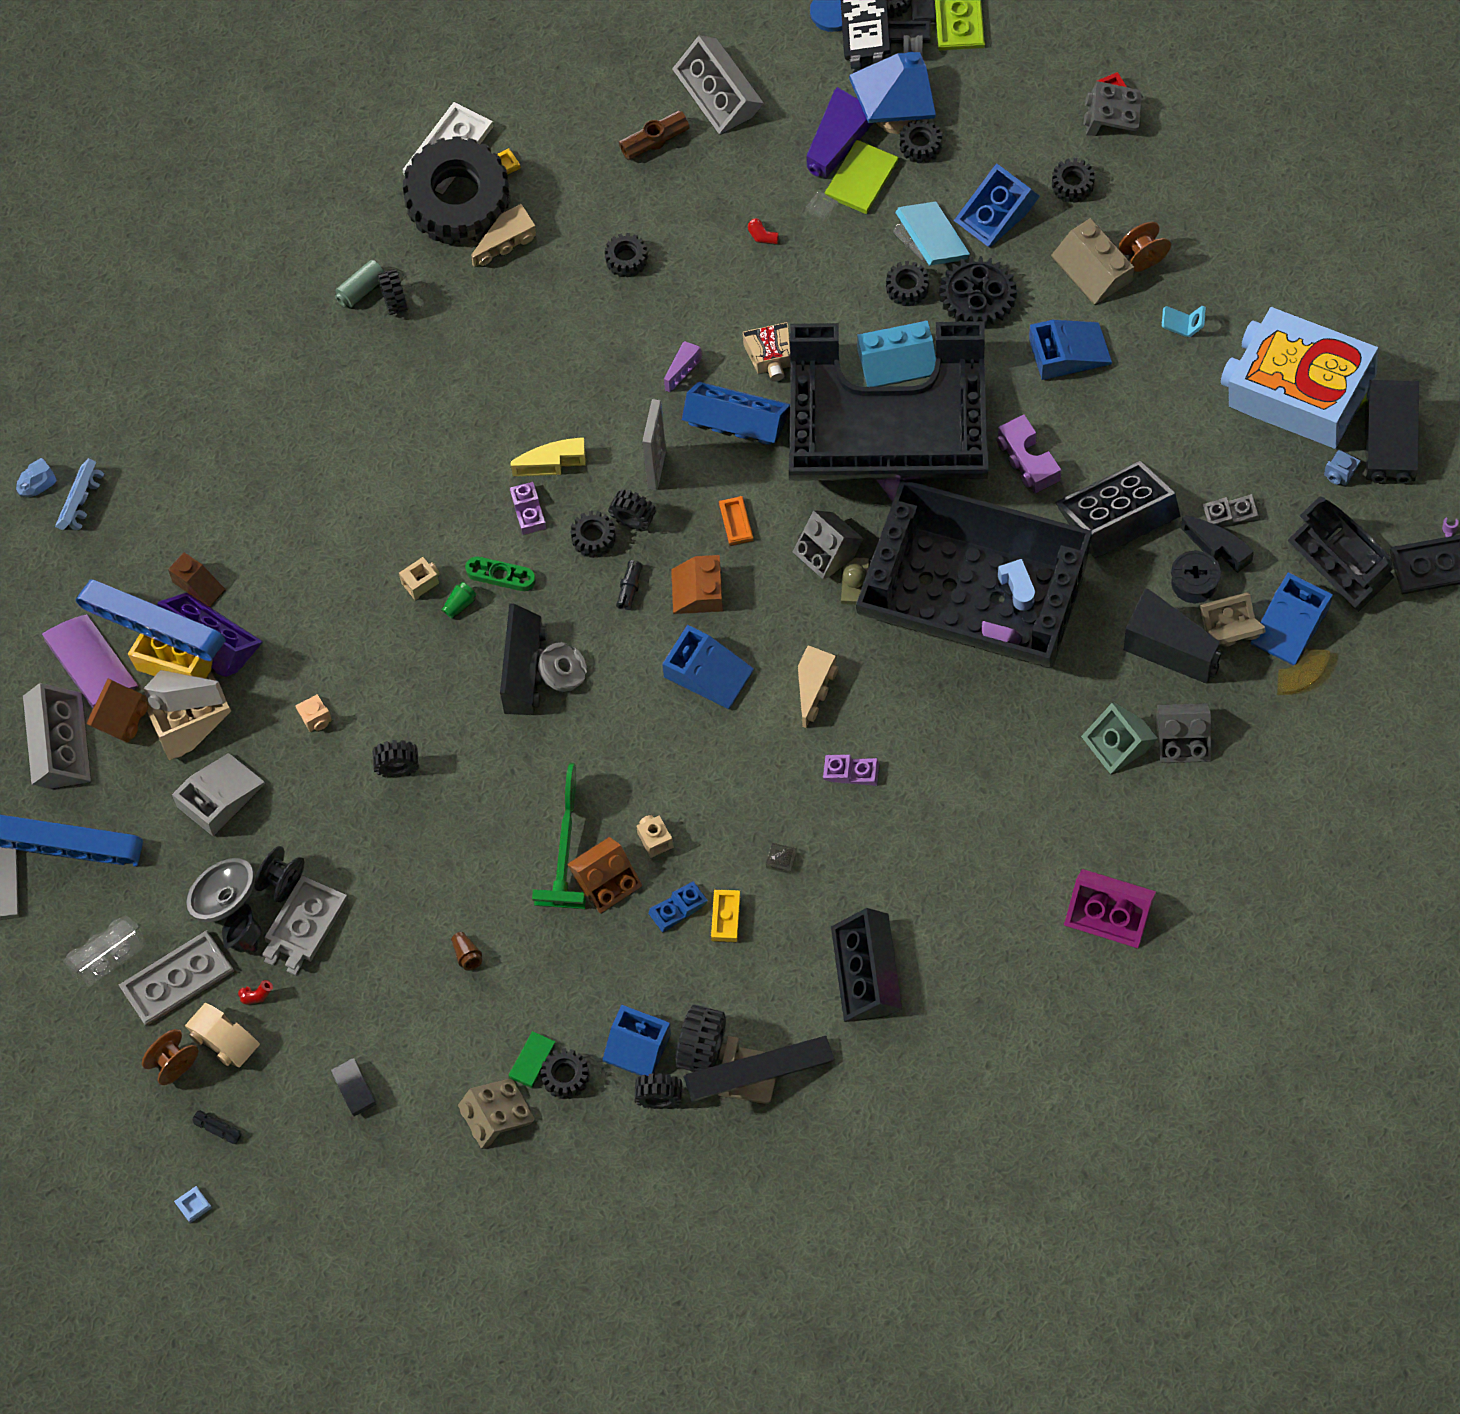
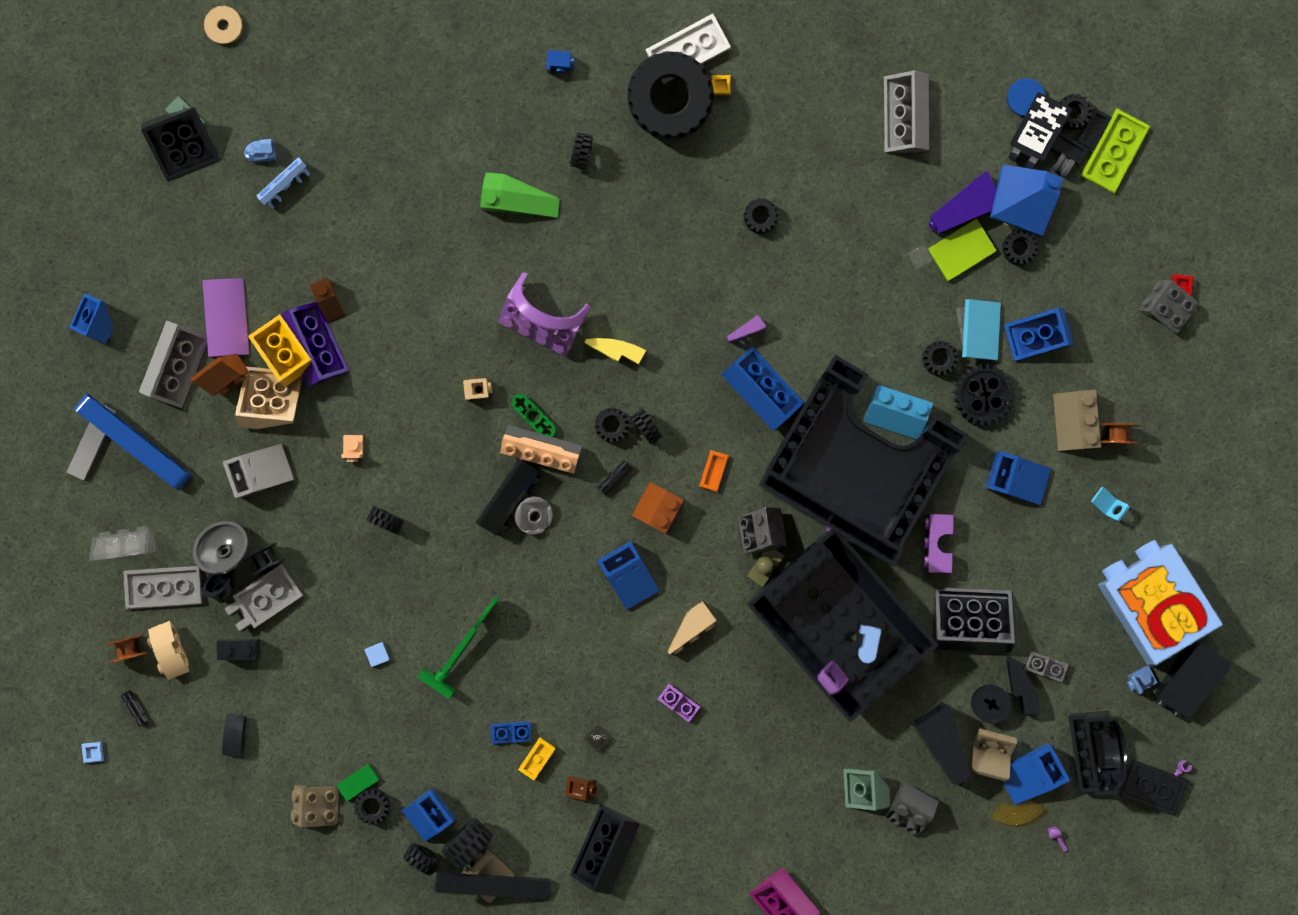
camera: 25 degrees right, 25 degrees up
(150, 620) = (274, 323): beam -> none
(180, 692) = (267, 386): light grey slope -> none
(251, 997) = (206, 632): red arm -> none
(304, 989) = (238, 649): none -> black brick
(316, 227) = (559, 61): none -> blue brick
(340, 380) = (510, 195): none -> bright green wedge
(358, 284) = (564, 127): sand green brick -> none
(449, 469) = (545, 329): none -> medium lavender piece
(458, 600) = (494, 421): green cone -> none
(466, 951) = (357, 682): reddish brown cone -> none
(471, 910) = (377, 654): none -> light blue tile
(507, 231) = (691, 146): tan slope -> none
(527, 508) = (580, 376): medium lavender slope -> none
(529, 594) = (540, 449): none -> light nougat piece
(605, 874) = (475, 683): dark orange slope -> none
(654, 444) = (686, 395): light grey tile -> none
(654, 842) = (527, 682): tan brick -> none
(663, 131) = (850, 128): reddish brown piece -> none
(759, 233) = (863, 253): red arm -> none
(769, 349) = (814, 354): torso -> none
(796, 917) = (580, 788): none -> reddish brown bracket
(1070, 191) = (1116, 341): black tyre -> none
(1361, 668) = (1054, 833): none -> medium lavender hand

